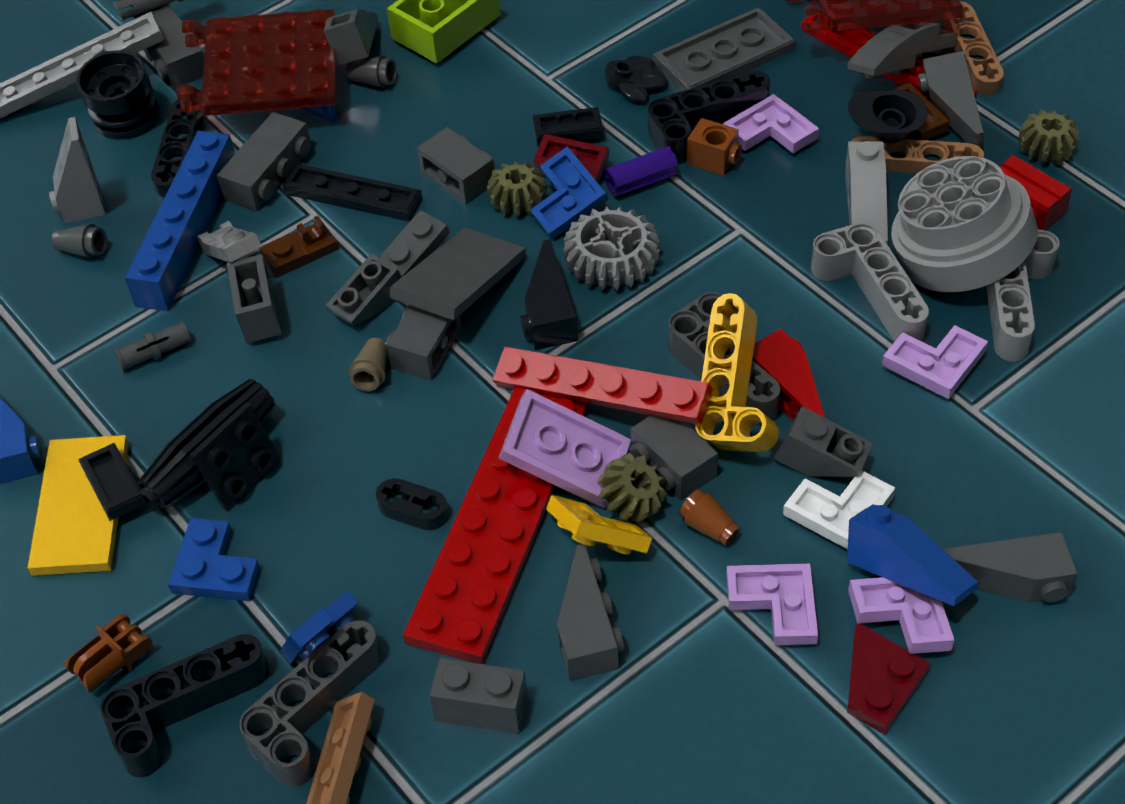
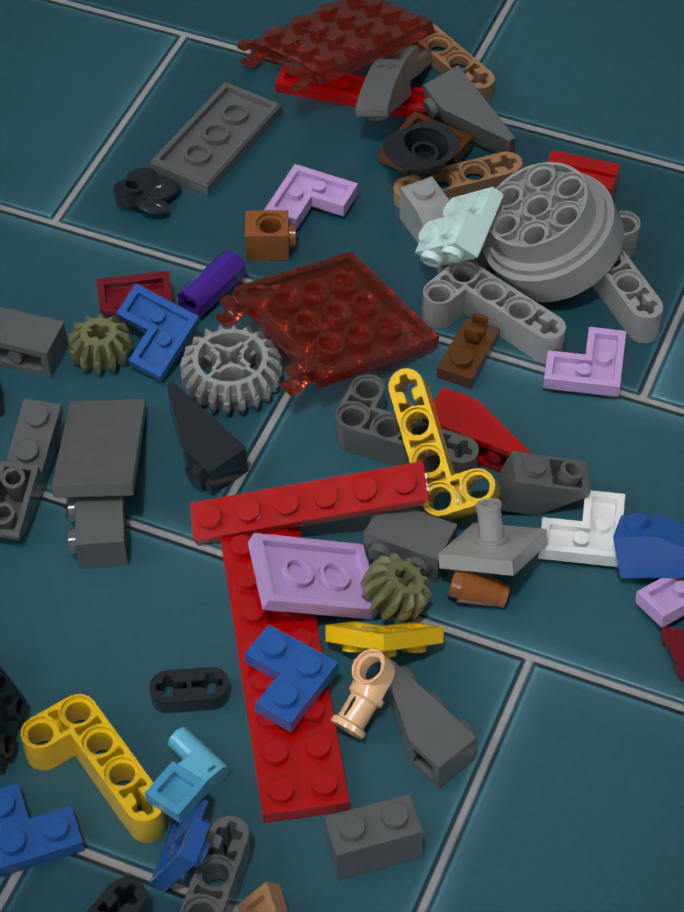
camera: 30 degrees left, 0 degrees up
(299, 500) = (105, 769): none -> yellow beam
(333, 582) = (176, 792): none -> dark azure tile
(369, 366) = (62, 573): dark tan cone -> none
(378, 573) = (198, 758): none -> medium azure piece
(501, 529) = (297, 672): none -> blue plate
(547, 566) = (365, 694): none -> light nougat connector
(571, 124) = (110, 261): black plate -> none
(676, 115) = (219, 215): black beam -> none
(718, 236) = (330, 320): none -> clear red plate
(738, 485) = (491, 545): none -> light grey tile
(785, 591) = (582, 625): lavender plate -> none
(832, 309) = (468, 351): none -> reddish brown plate
(867, 199) = (461, 230): none -> light aqua plate
(1049, 137) = (568, 122): olive gear -> none

